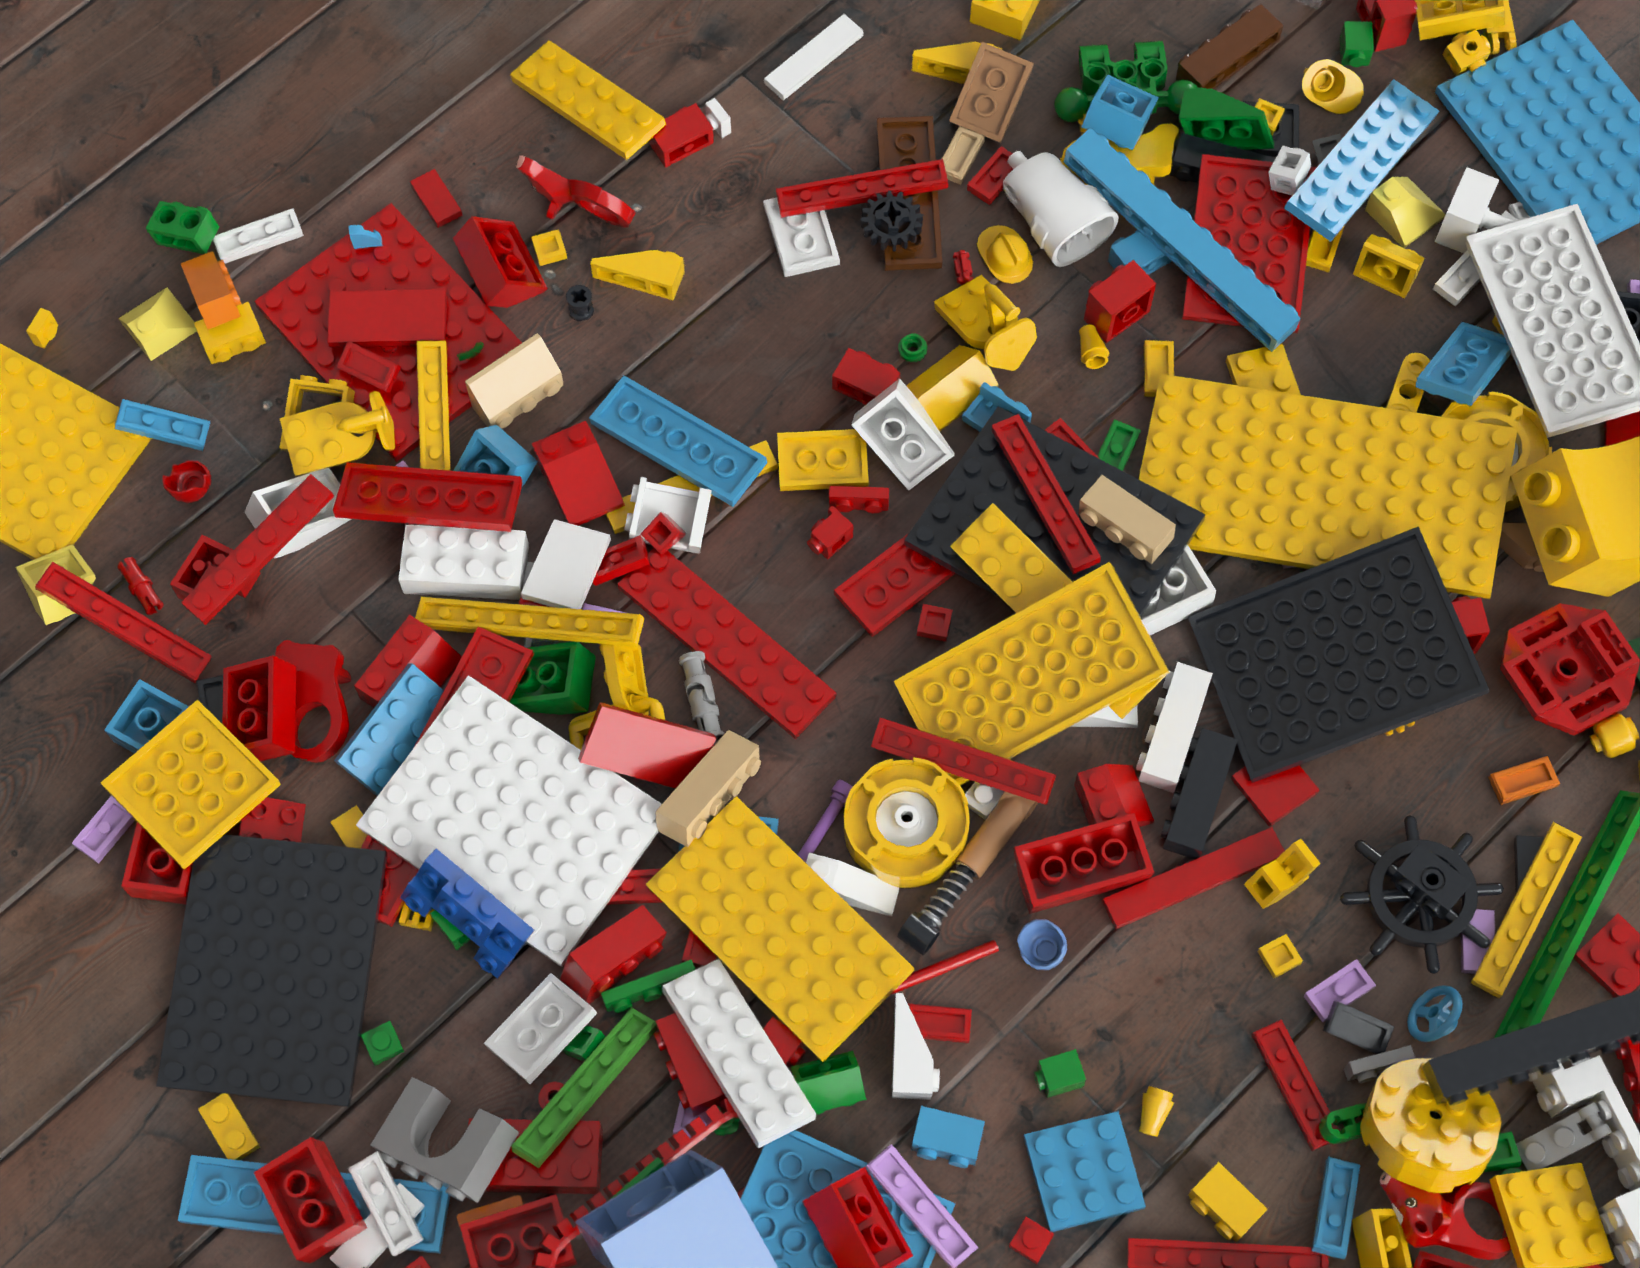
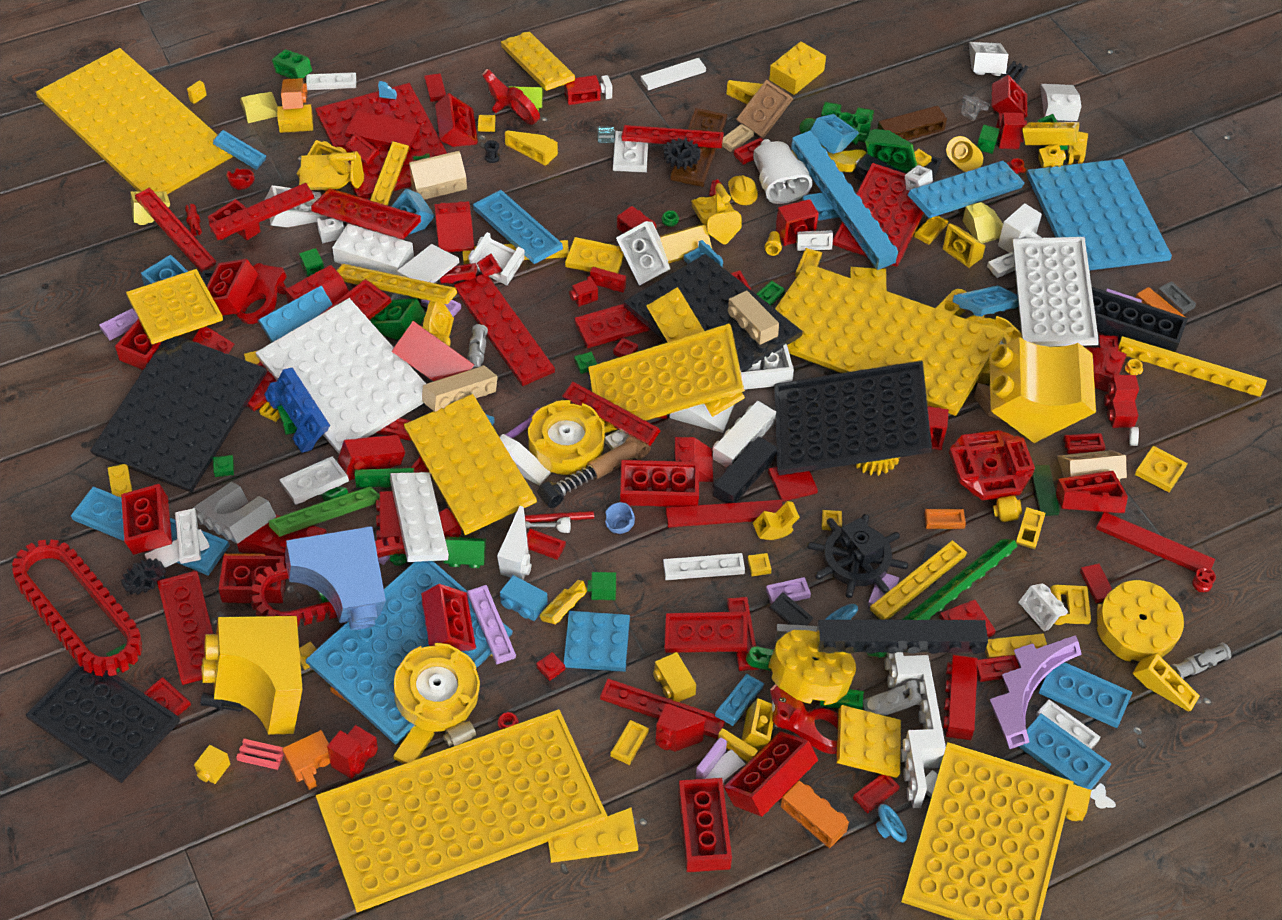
camera: 15 degrees right, 15 degrees down
(372, 614) = (311, 262): none -> green brick
(373, 544) = (329, 229): none -> white brick
(602, 170) = (535, 94): none -> lime slope
(749, 211) = (606, 134): none -> clear light blue tile
(880, 665) = (584, 361): none -> green plate
(955, 981) = (563, 525): none -> hinge
(1011, 1124) = (563, 602): none -> yellow hinge
(1046, 494) = (711, 291): red plate -> none
(1155, 323) = (814, 240): none -> white plate
(1155, 1109) = (652, 619): yellow cone -> none
(1198, 987) = (703, 566): none -> white plate
(1246, 1106) = (706, 632): none -> red plate
(1356, 831) = (836, 515): none -> yellow tile
(1419, 76) = (1017, 165): none -> red plate

